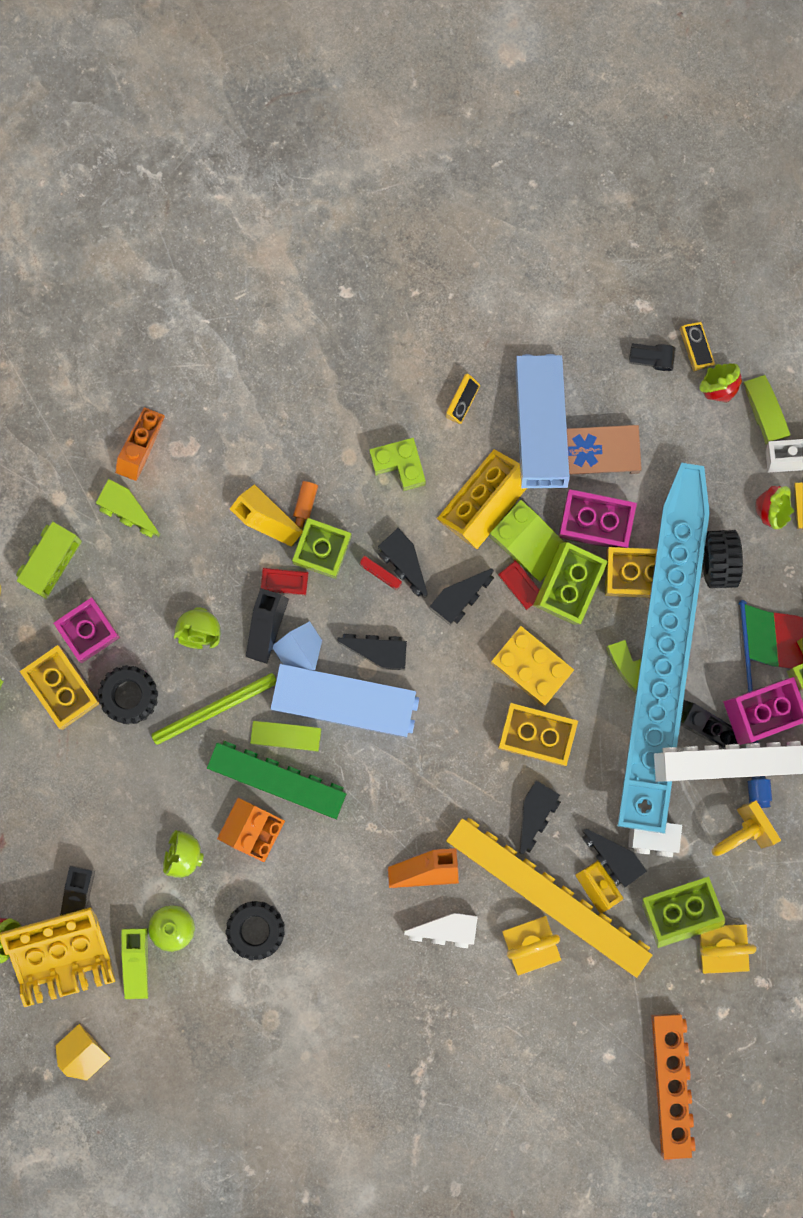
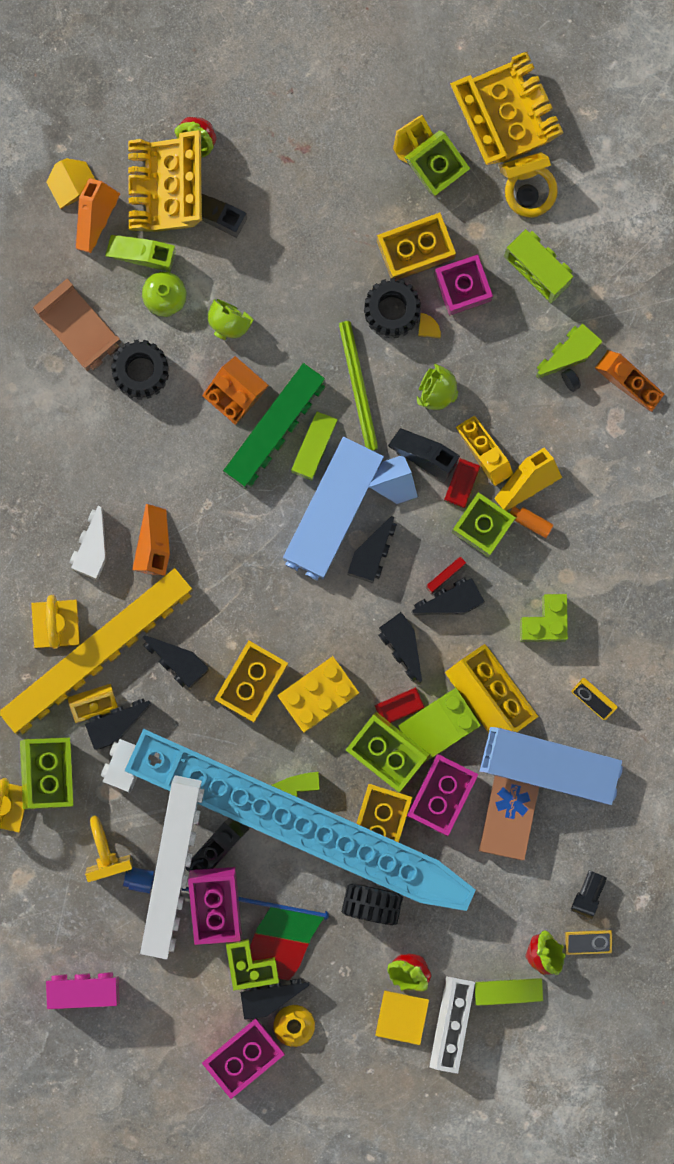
camera: 105 degrees right, 0 degrees up
(105, 1022) = (93, 212): none -> orange slope
(137, 654) = (428, 327): none -> yellow tile
(154, 500) = (571, 380): none -> black tile
(226, 1006) = (77, 326): none -> nougat panel
(246, 567) = (485, 450): none -> yellow slope

